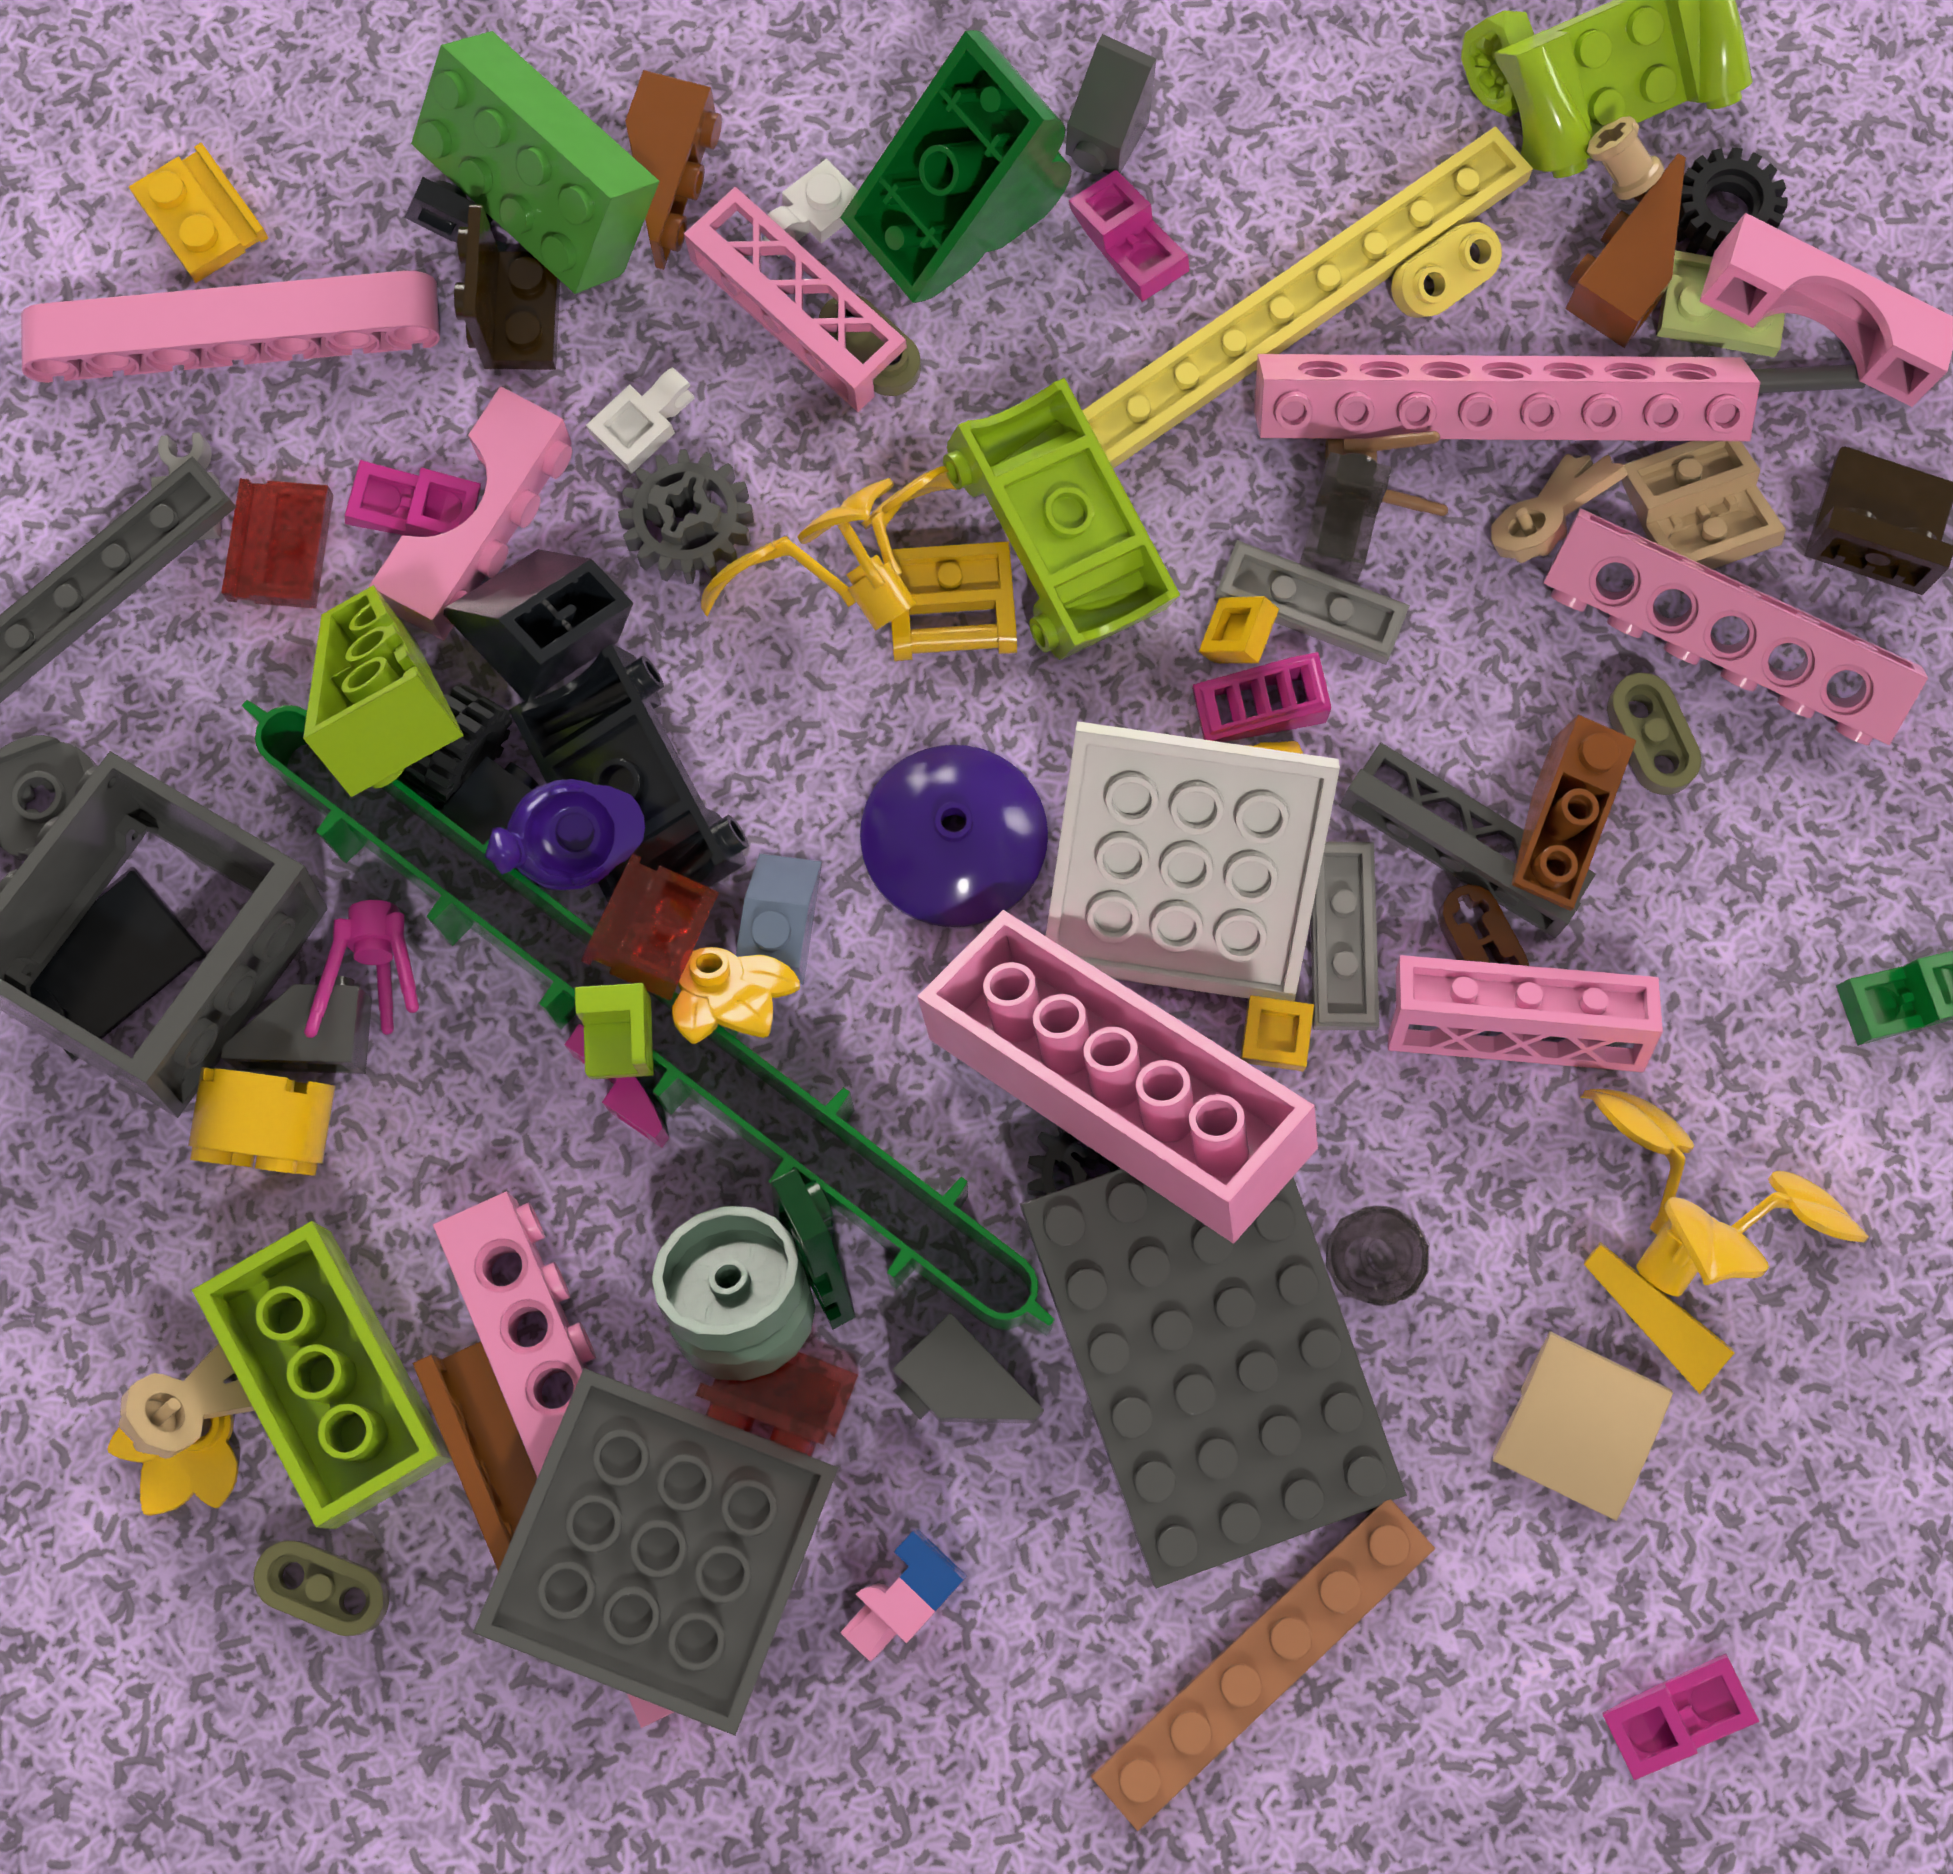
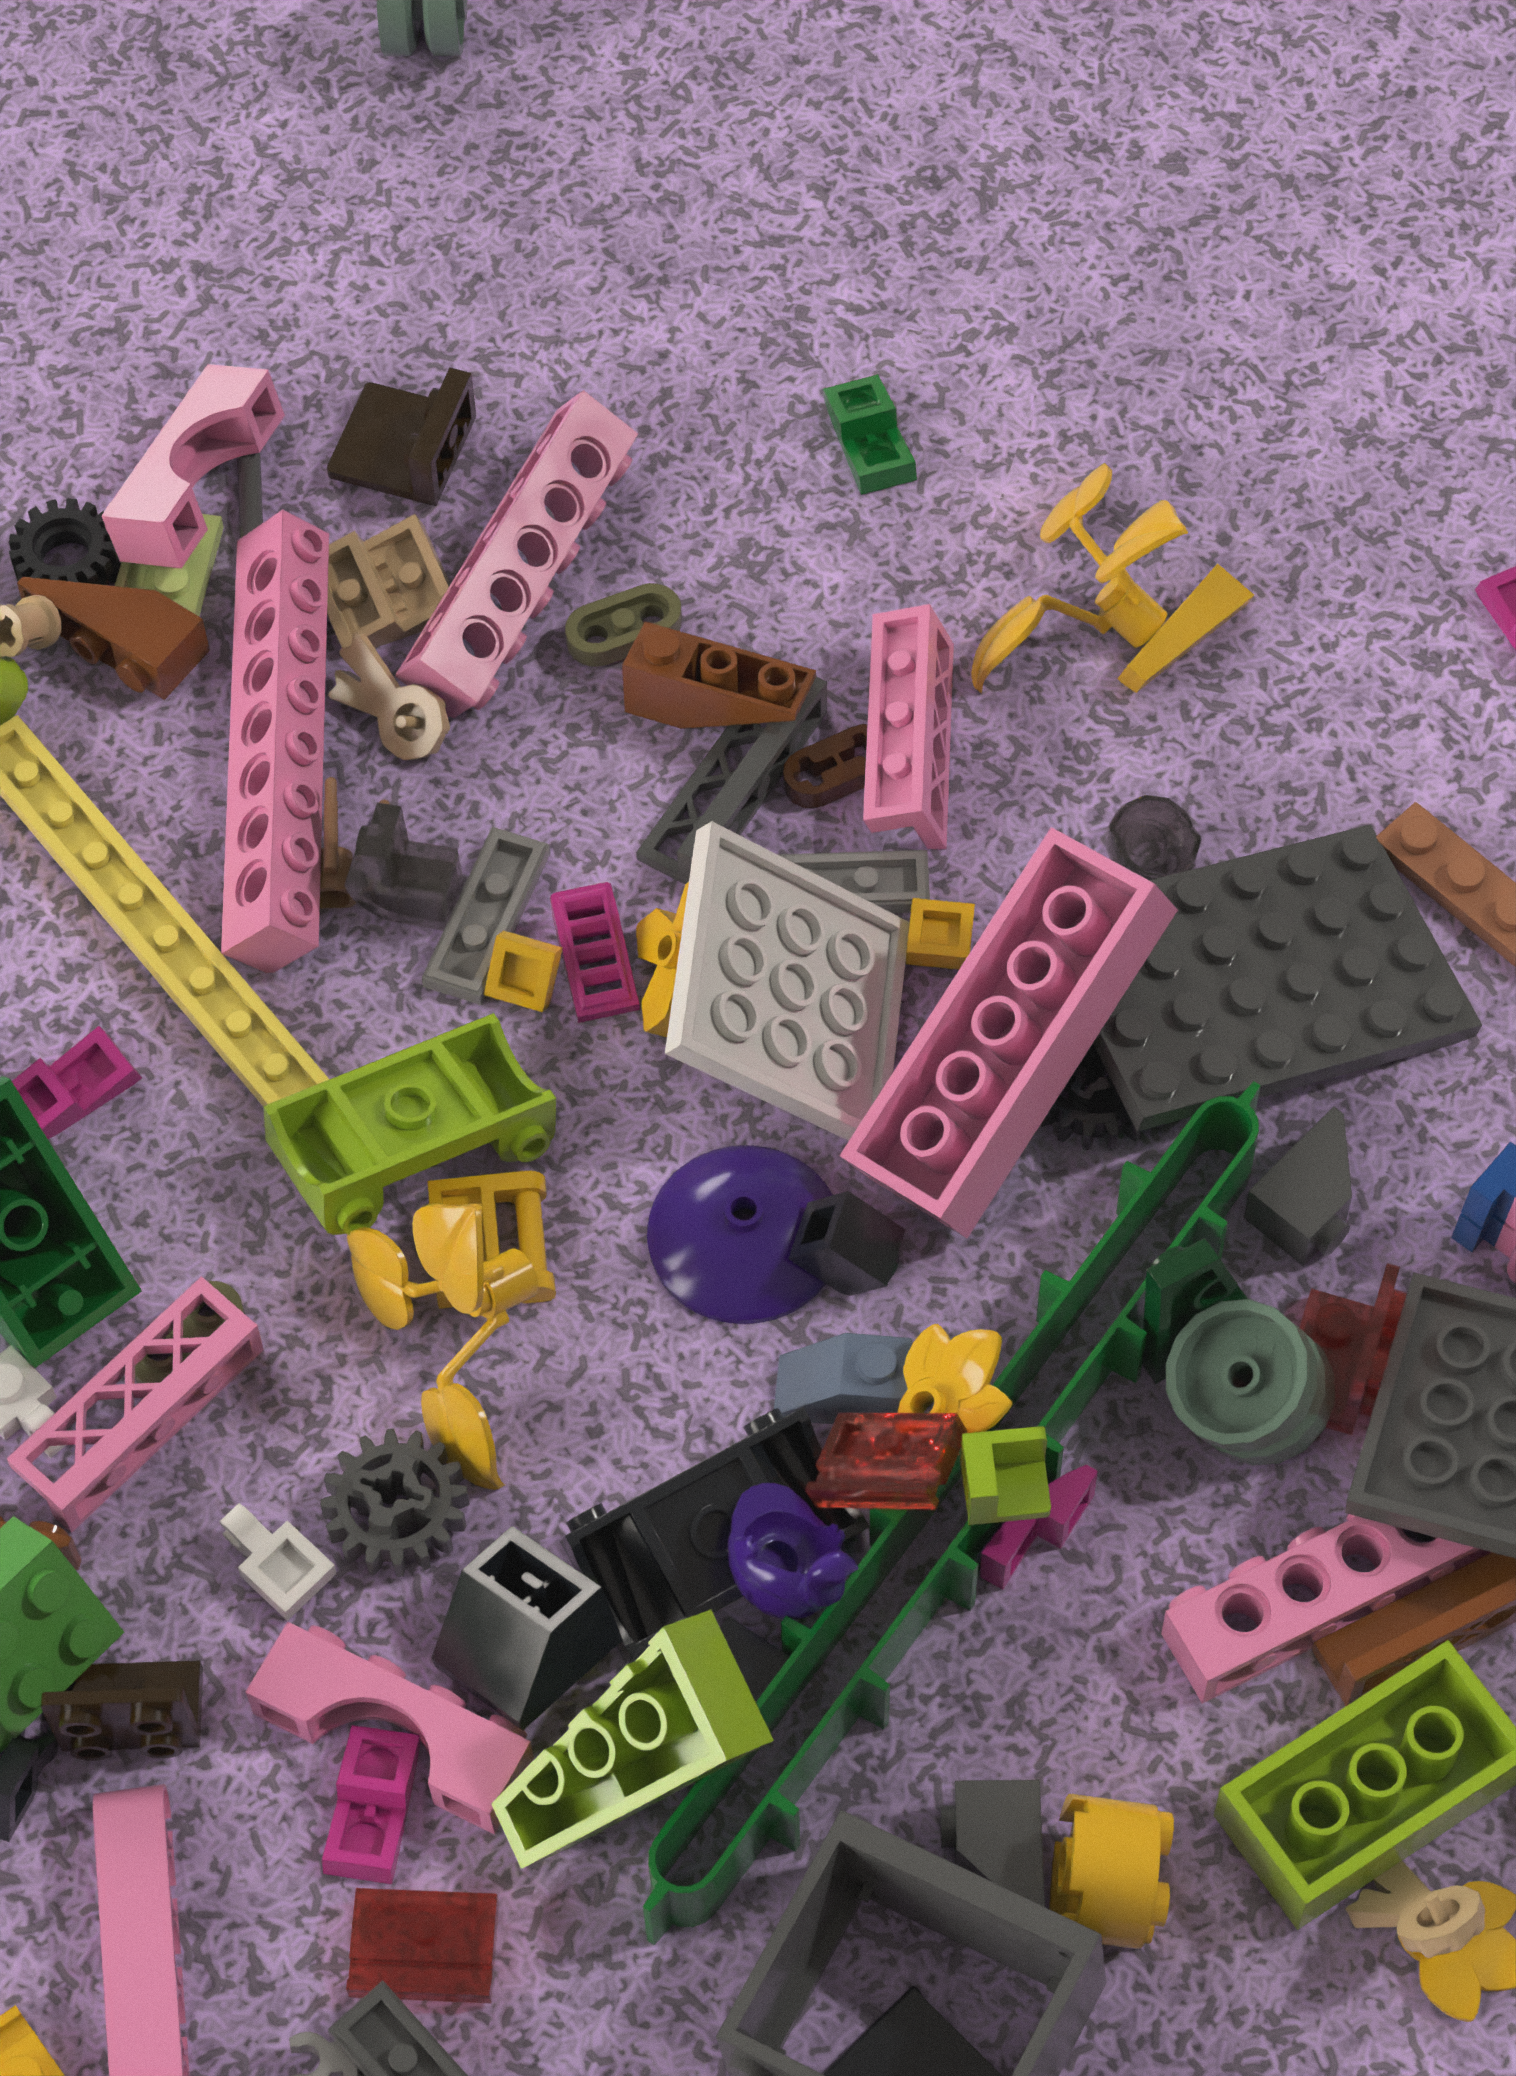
camera: 90 degrees left, 15 degrees down
(374, 935) = (893, 1786): dark pink plant -> none
(916, 920) = (847, 1244): none -> black brick
(1449, 266) = (125, 794): light yellow plate -> none
(1583, 1425) = (1290, 688): tan slope -> none

